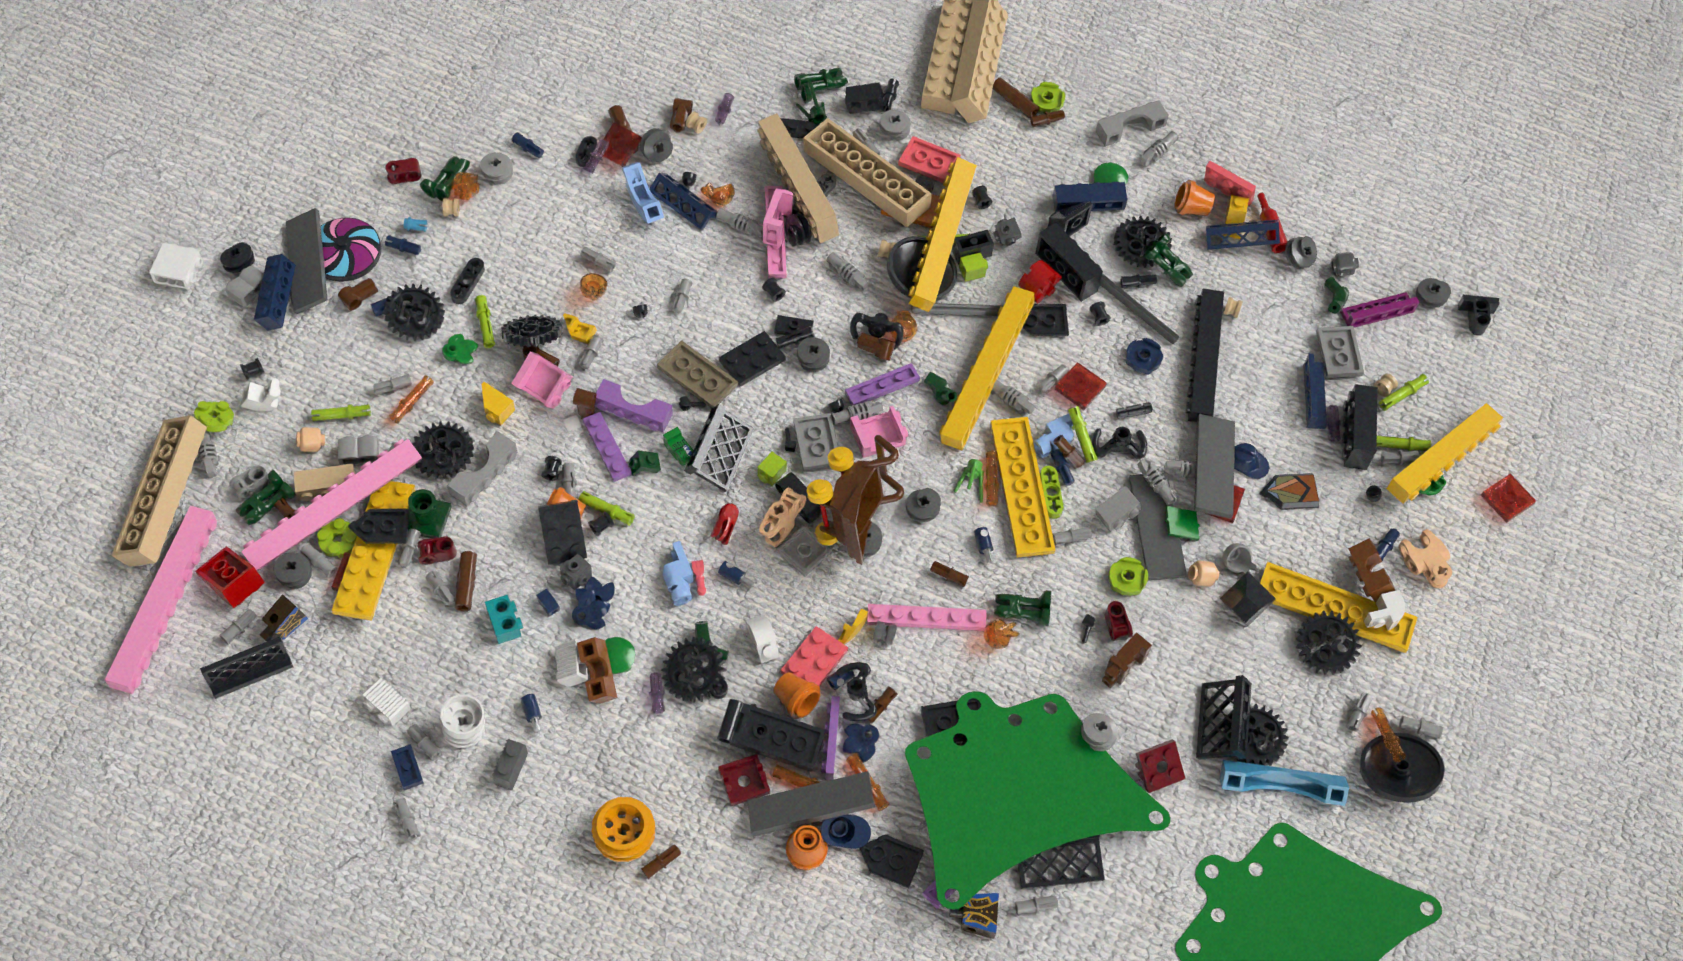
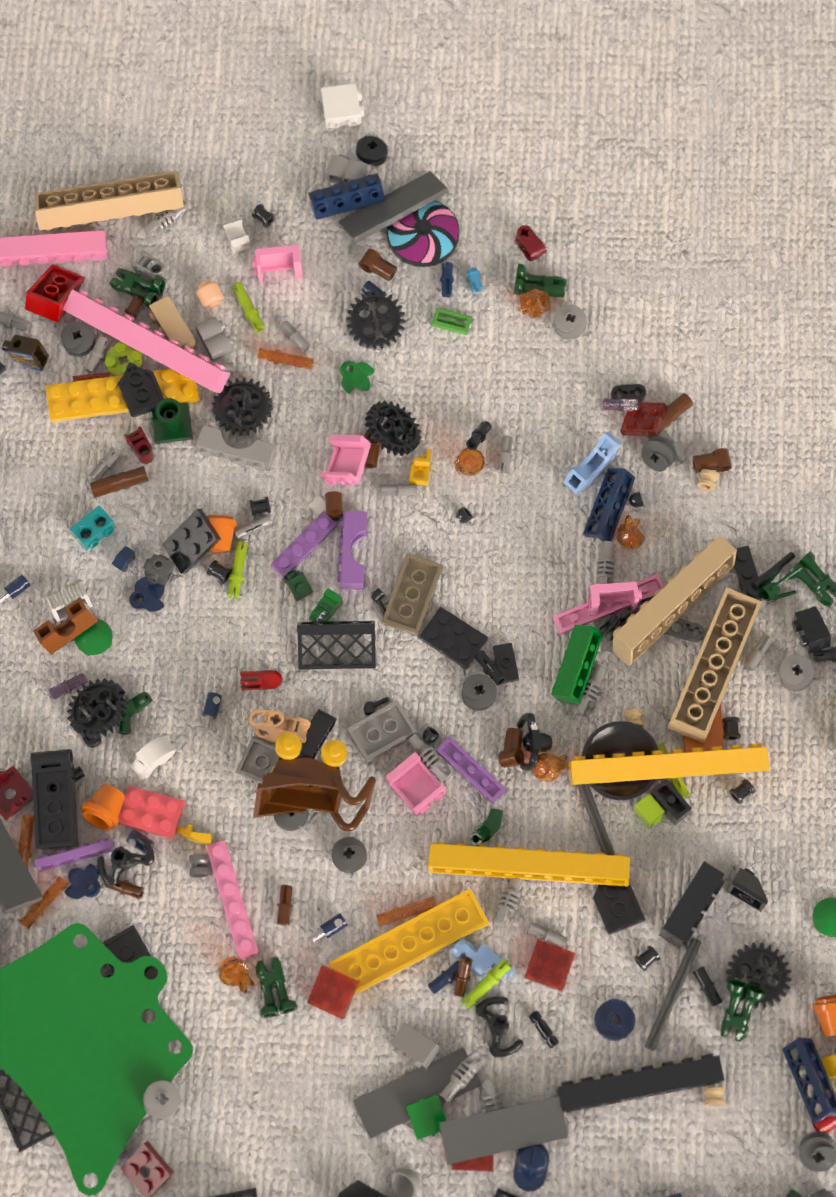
camera: 75 degrees right, 10 degrees up
(206, 410) = (198, 216): lime plate -> none
(314, 354) = (277, 259): none -> bright pink panel
(409, 548) = (134, 422): light grey axle -> none
(447, 258) = (435, 323): none -> bright green tile
(451, 207) = (506, 301): tan wheel -> none
(467, 273) = (438, 357): black beam -> none
(483, 315) = (400, 380): lime pin -> none
(496, 404) = (306, 430): yellow slope -> none
(527, 145) = (610, 338): dark blue axle -> none
(571, 270) = (478, 435): none -> black pin
(593, 609) = (126, 599): dark blue plate -> none
(678, 576) = (192, 659): light blue plate -> none
(681, 295) = (496, 546): light grey axle -> none
(698, 571) = (205, 675): coral piece -> none
(724, 108) = (739, 500): clear purple axle -> none
(771, 469) = (334, 700): lime brick -> none
(773, 289) = (539, 628): black bush -> none
(799, 107) = (773, 570): none -> black bar
(821, 270) = (577, 664): none -> green brick
(927, 159) = (767, 721): coral plate -> none
(973, 471) = (408, 890): bright green plant -> none
(1007, 231) = (706, 830): dark grey brick -> none
(1040, 280) = (654, 882): red brick -> none
(1046, 558) = (333, 992): none -> clear red plate
(1054, 484) = (398, 976): lime beam -> none
(1071, 535) = (371, 1010): light grey axle -> none
(1089, 622) = (283, 1056): black hand -> none
(1102, 195) = (789, 901): dark blue brick -> none
(1118, 625) = (288, 1084): dark red piece -> none
(1119, 666) = (245, 1102): reddish brown hips -> none
(1121, 584) = (337, 1072): lime plate -> none
(1203, 573) = (376, 1154): light nougat head -> none

